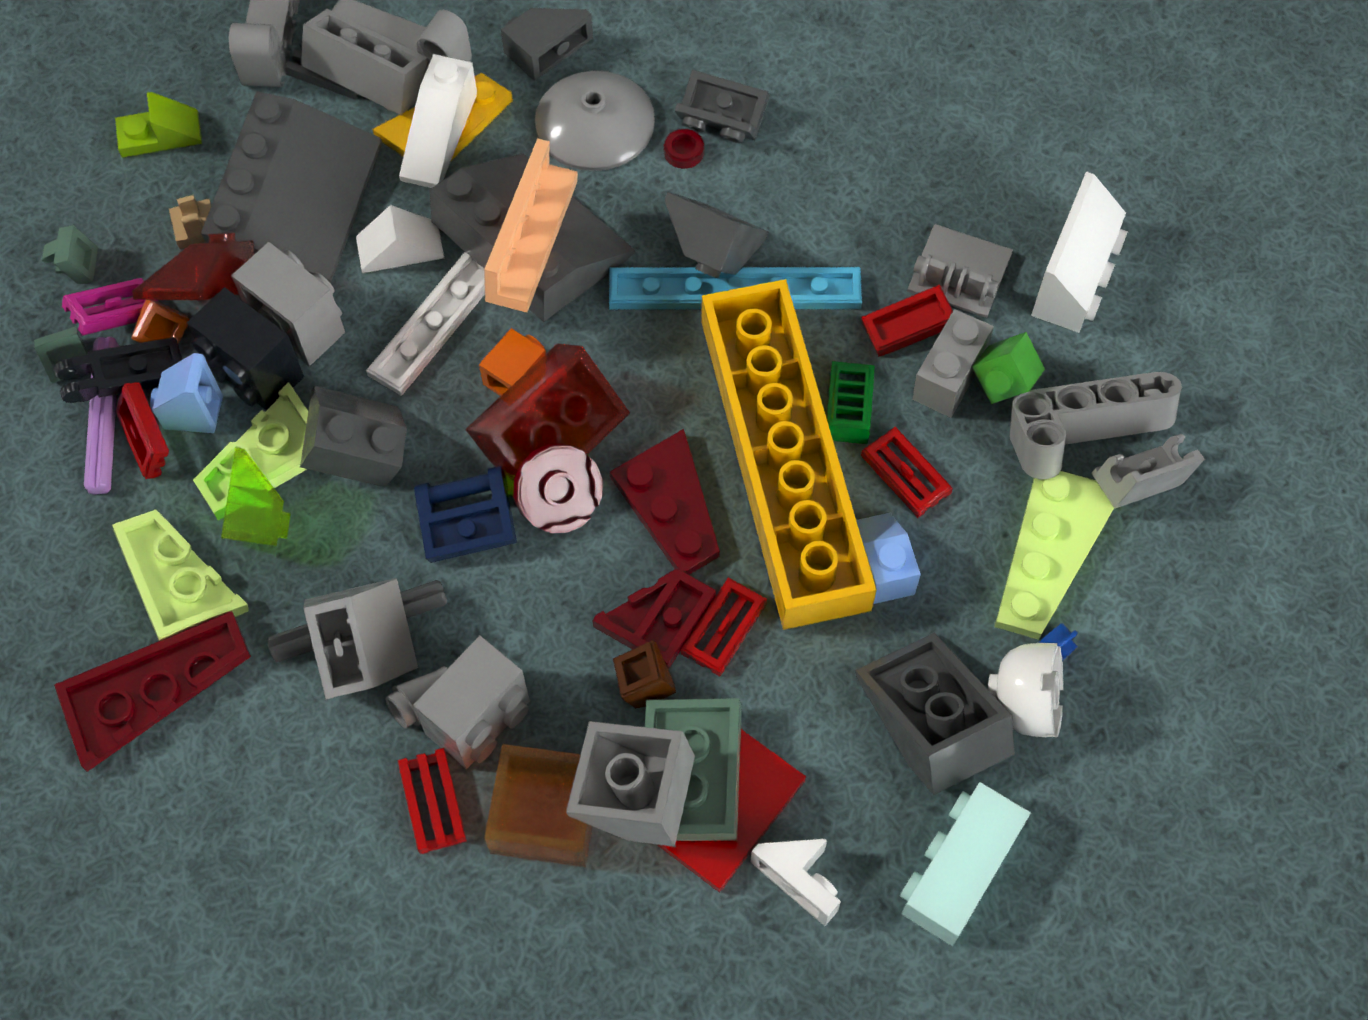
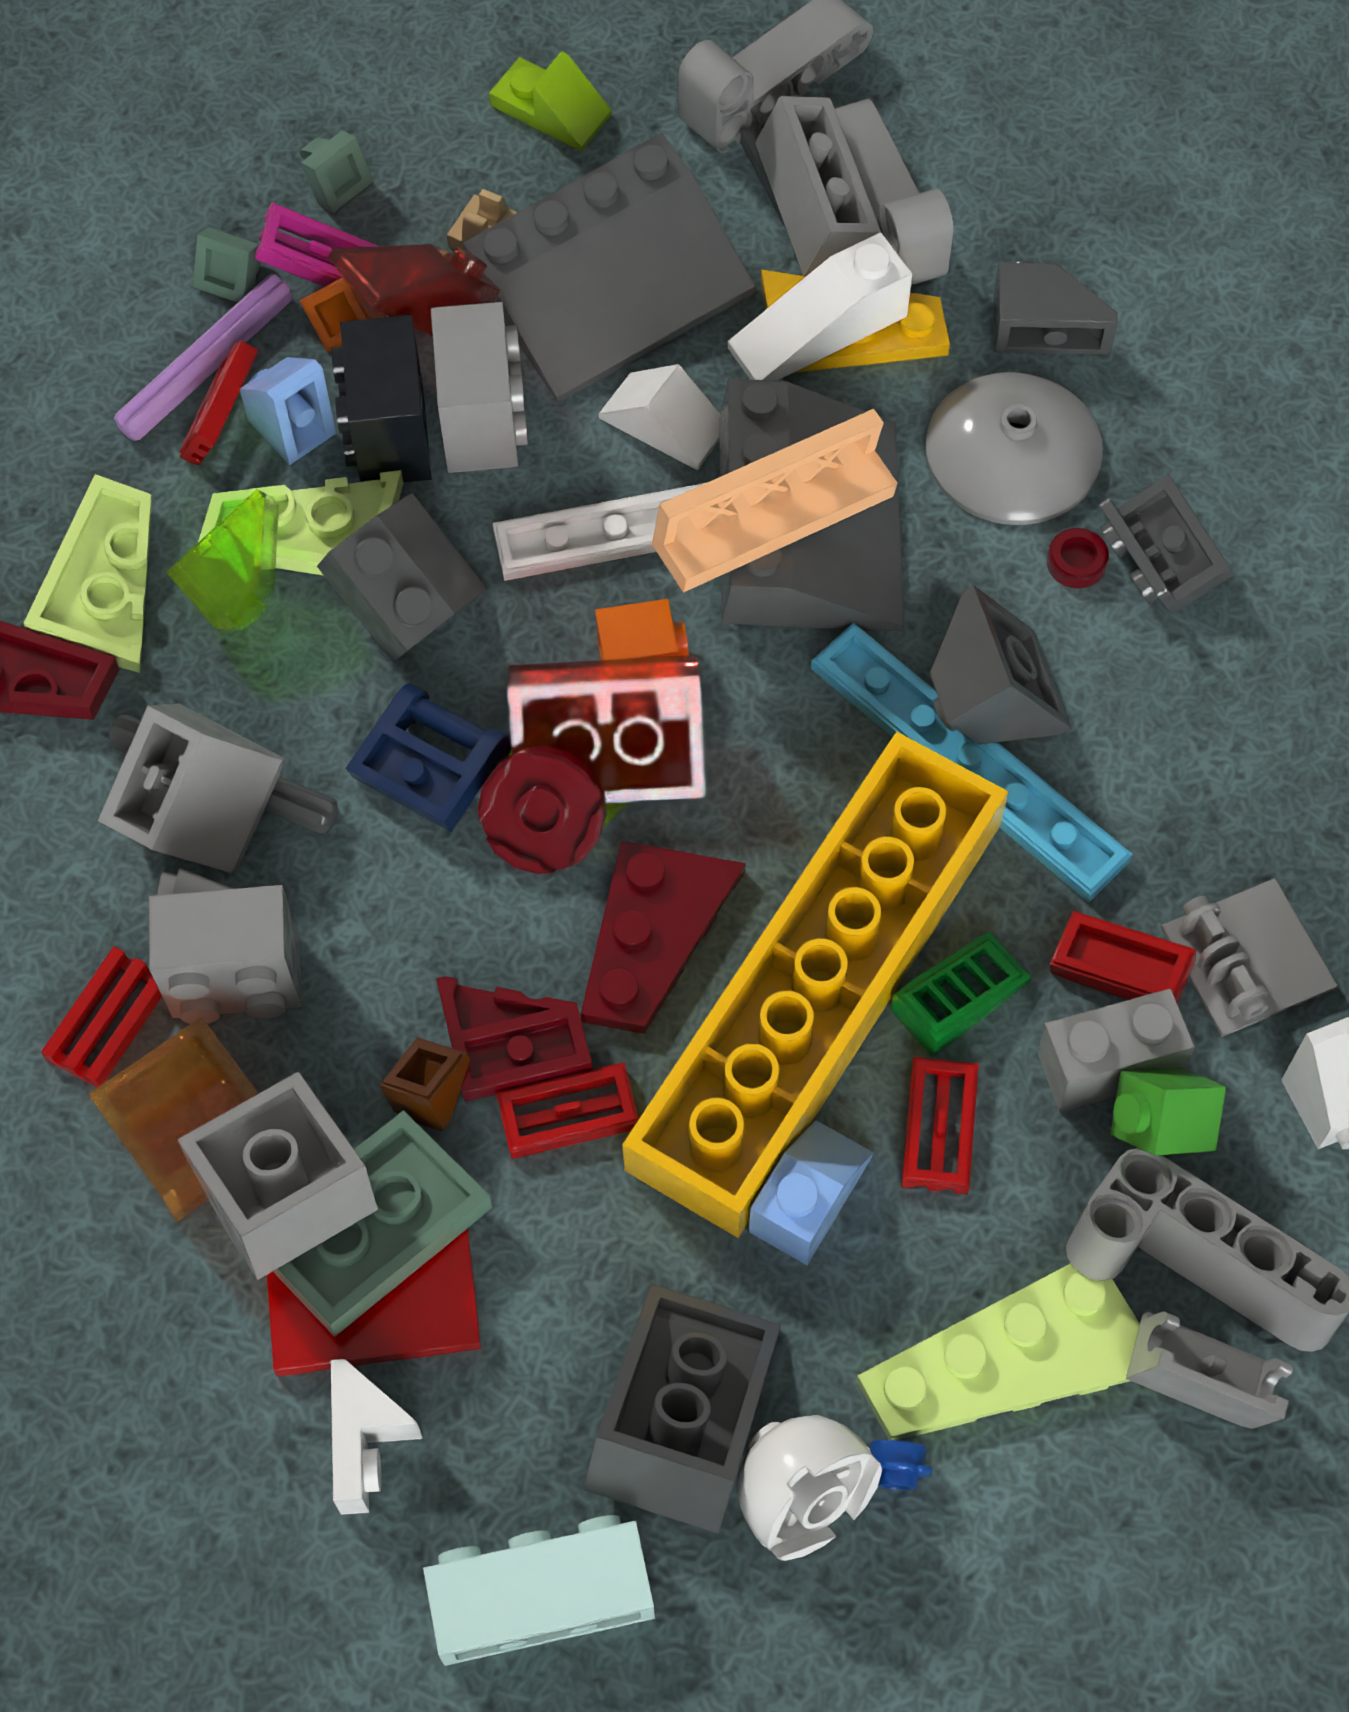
camera: 45 degrees right, 0 degrees up
(116, 367) = (255, 319): black hinge -> none

